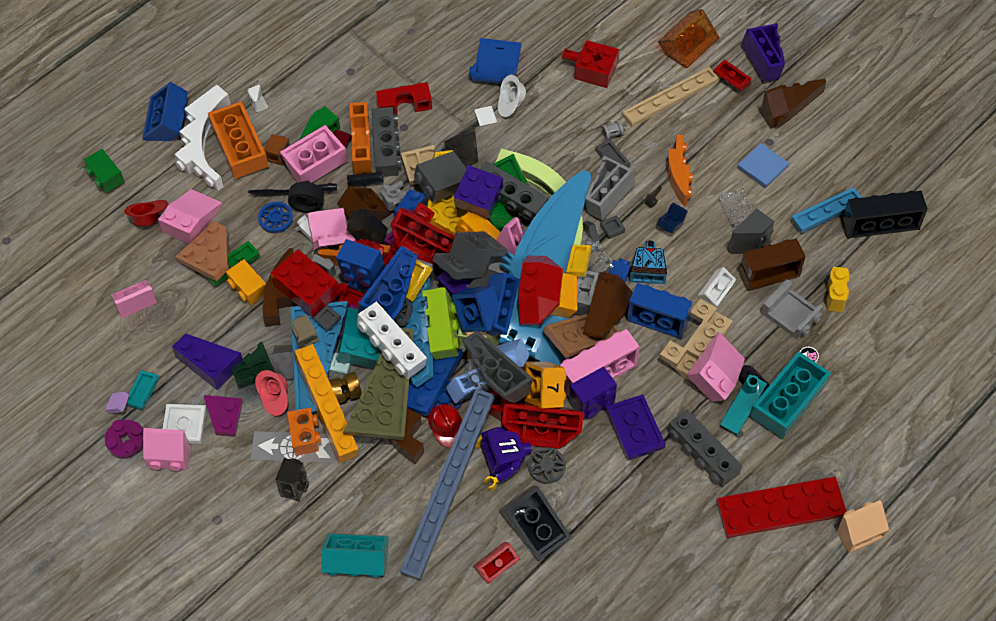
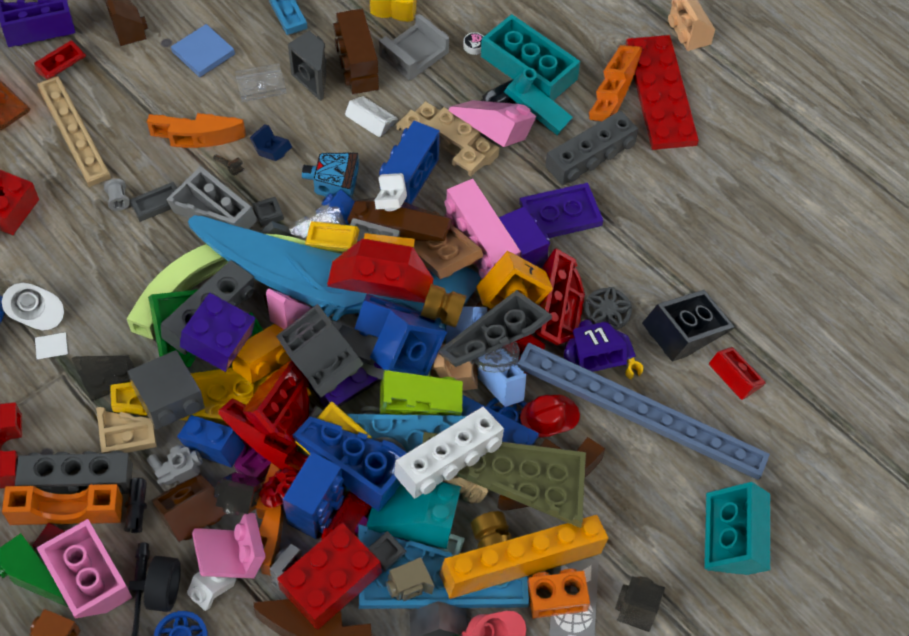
camera: 90 degrees left, 0 degrees up
(510, 326) = (443, 305): none -> pearl gold wheel
(617, 292) = (392, 192): none -> white bracket
(785, 468) = (617, 80): none -> orange slope

